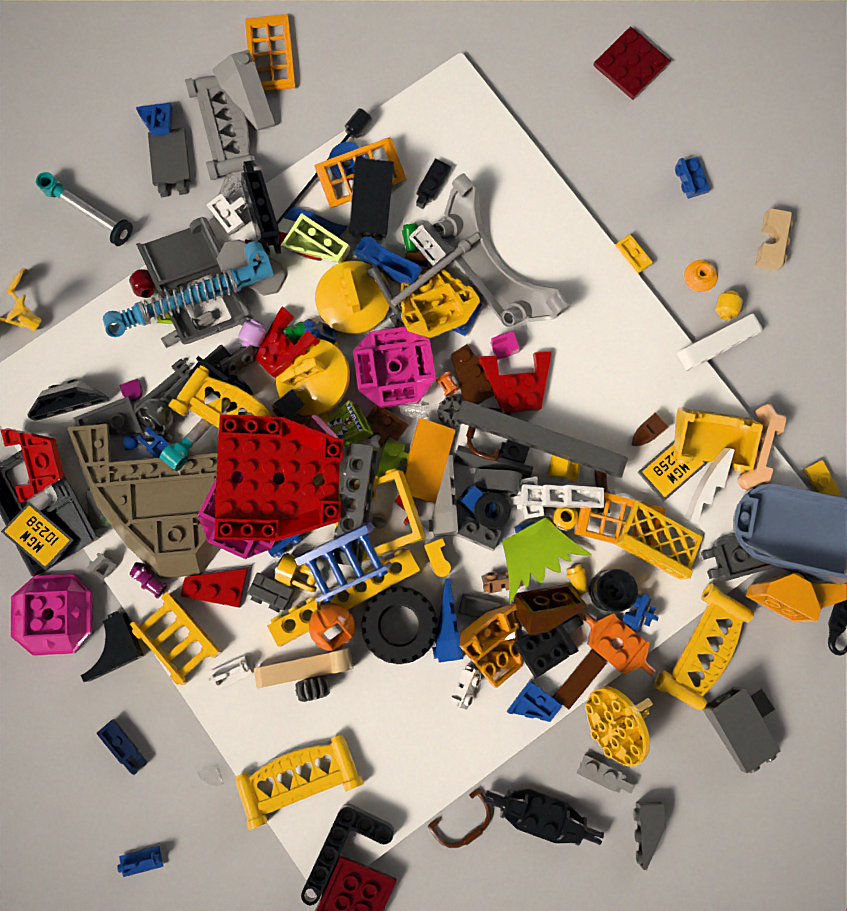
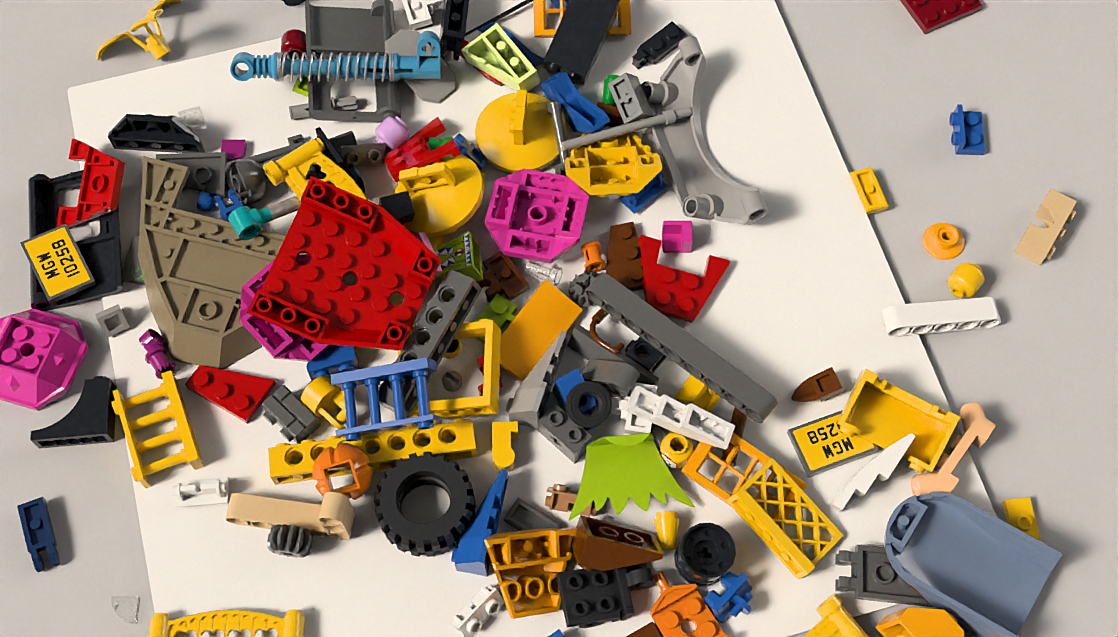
camera: 20 degrees right, 15 degrees down
(87, 373) = (193, 117): none -> clear tile

